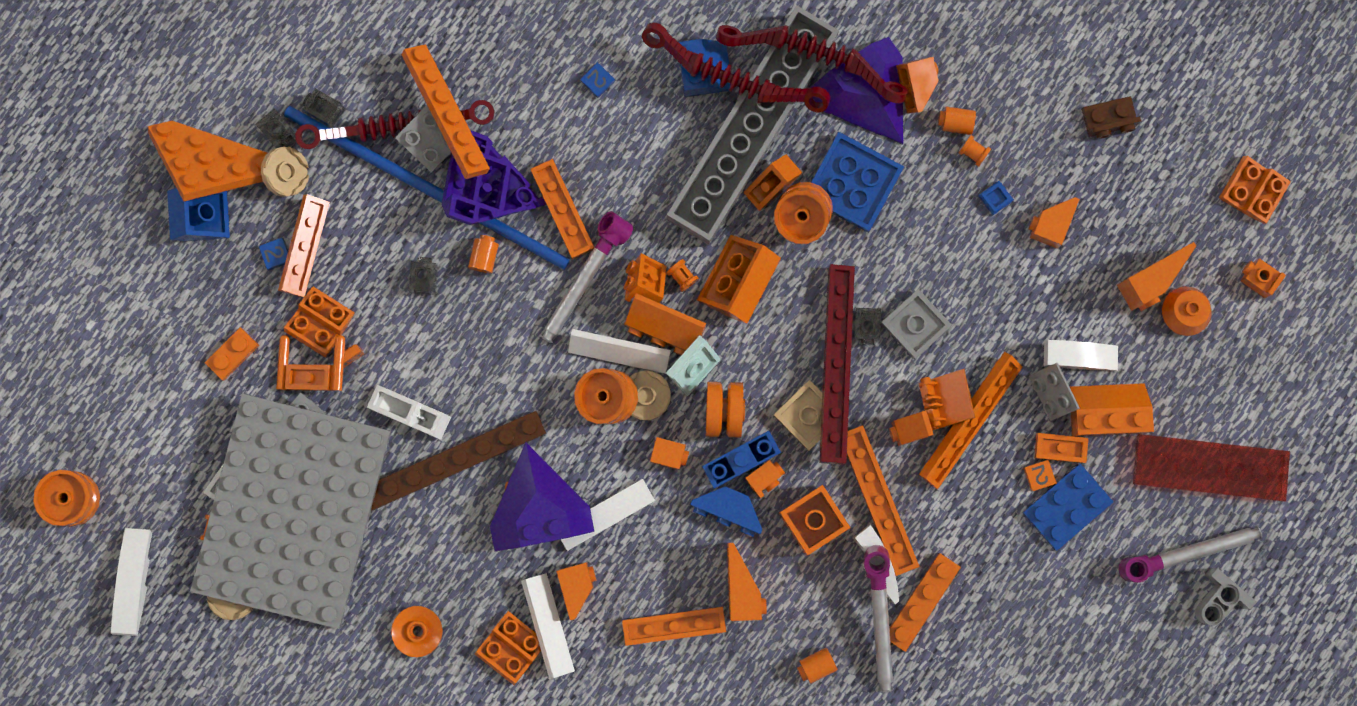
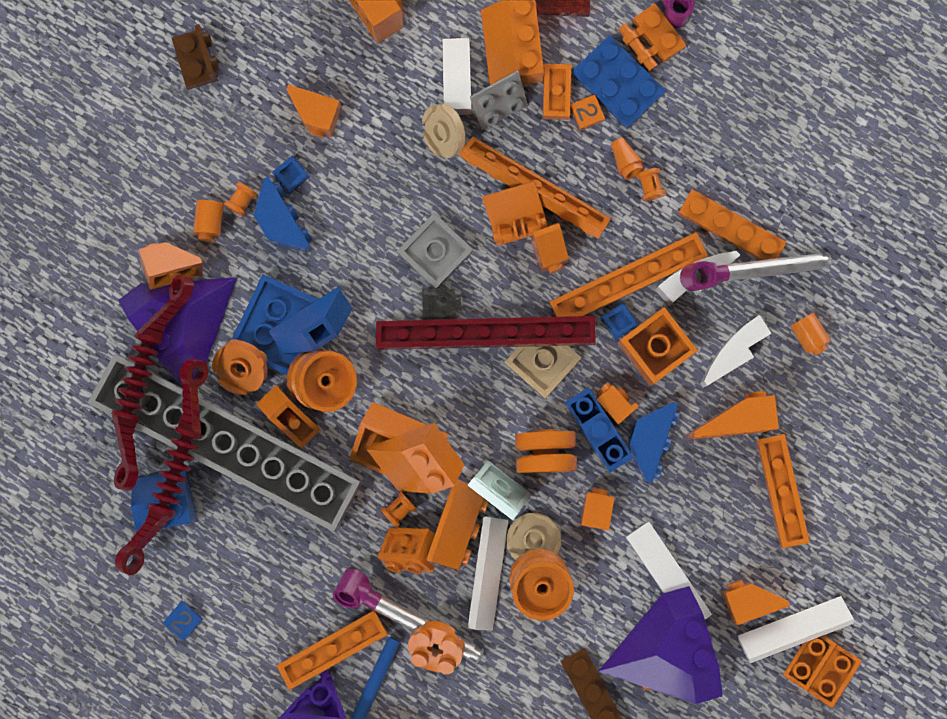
camera: 90 degrees left, 0 degrees up
(550, 290) = (432, 659): none -> orange plate
(724, 294) = (418, 460): none -> orange slope
(806, 593) = (735, 350): none -> white slope
(829, 149) = (250, 357): none -> orange plate
(840, 489) = (619, 321): none -> blue tile
(854, 208) = (314, 324): none -> blue slope
(953, 184) = (279, 220): none -> blue slope
(967, 529) = (651, 184): none -> orange bush
(991, 508) = (626, 159): none -> orange cone
(1028, 338) = (443, 131): none -> tan tile
(1114, 548) = (659, 34): none -> orange plate

